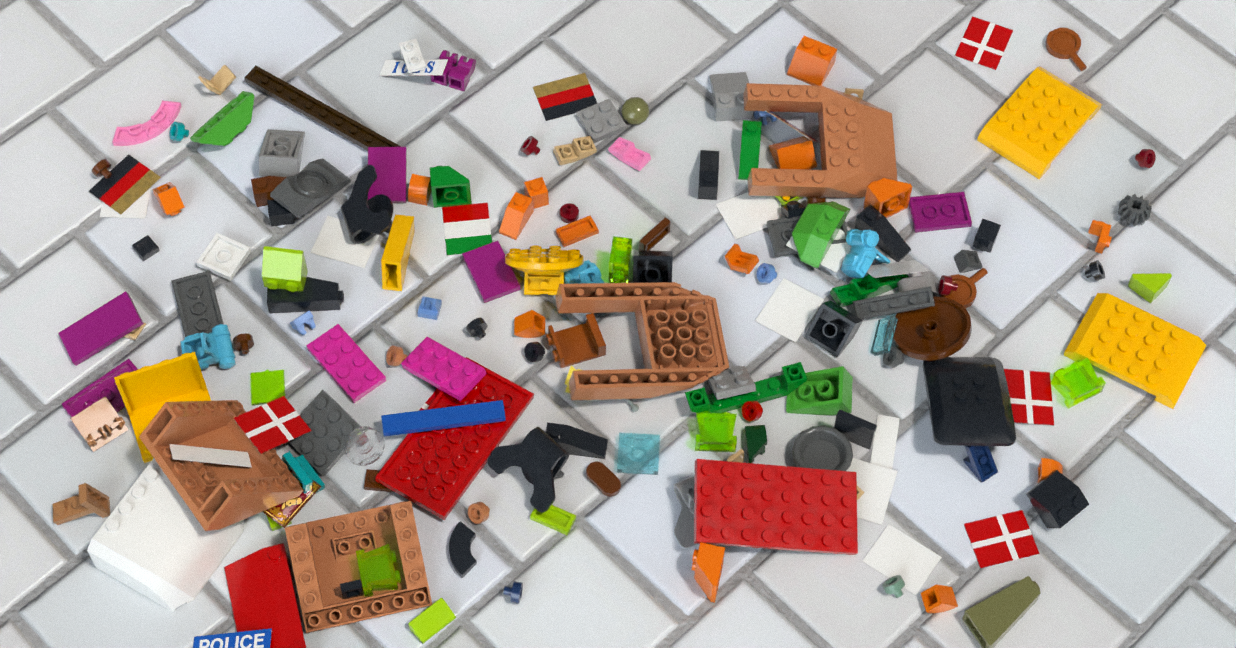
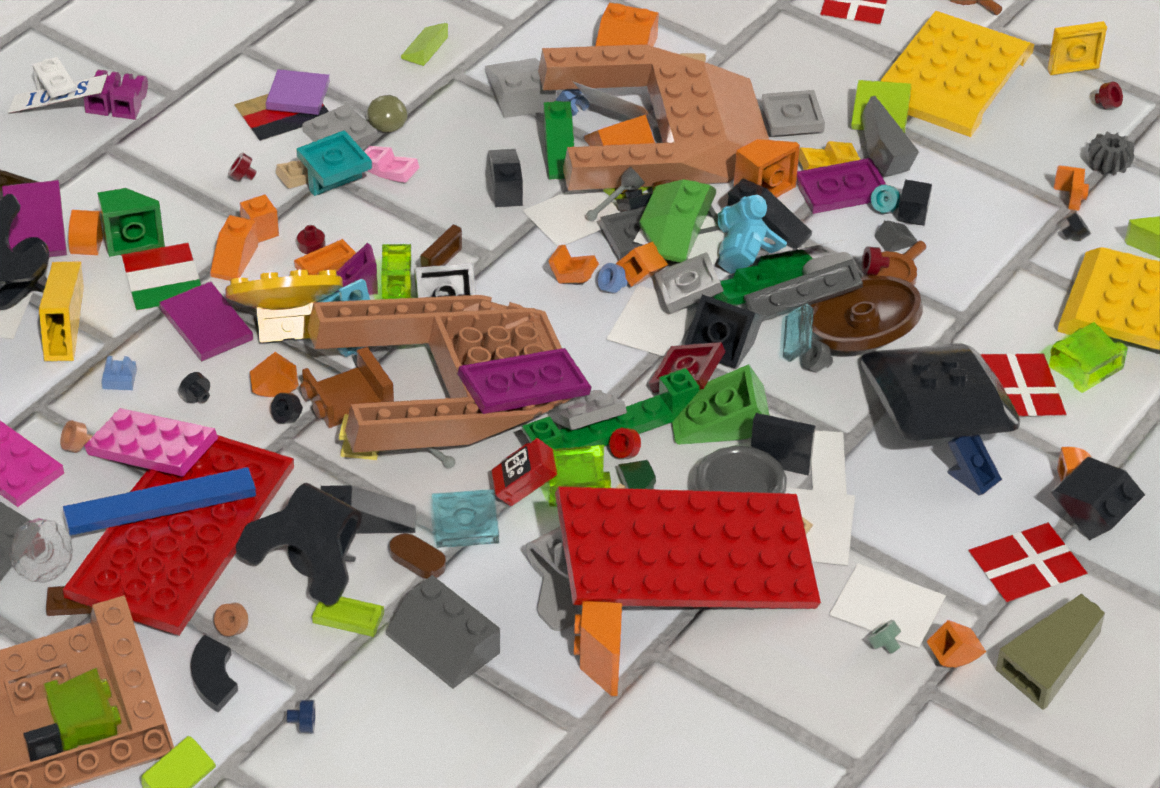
camera: 10 degrees left, 15 degrees down
(577, 83) = (297, 92): none -> medium lavender tile
(592, 152) = (333, 162): none -> teal bracket
(595, 248) = (361, 266): none -> magenta slope
(611, 542) = (444, 632): none -> dark grey slope
(671, 50) = (426, 44): none -> lime slope
(681, 427) = (524, 471): none -> red piece
(691, 358) = (524, 380): none -> magenta tile
(788, 265) = (642, 263): none -> orange brick
(791, 197) = (629, 181): none -> hinge
(804, 350) = (696, 358): none -> dark red tile
(817, 285) = (687, 282): none -> light grey tile
(917, 145) = (793, 112): none -> light grey plate
(938, 185) = (832, 154): none -> yellow slope
(967, 229) = (885, 198): none -> teal tile
(976, 182) = (886, 141): none -> dark grey slope
(980, 148) = (892, 95): none -> lime tile
(1130, 116) = (1077, 48): none -> yellow tile

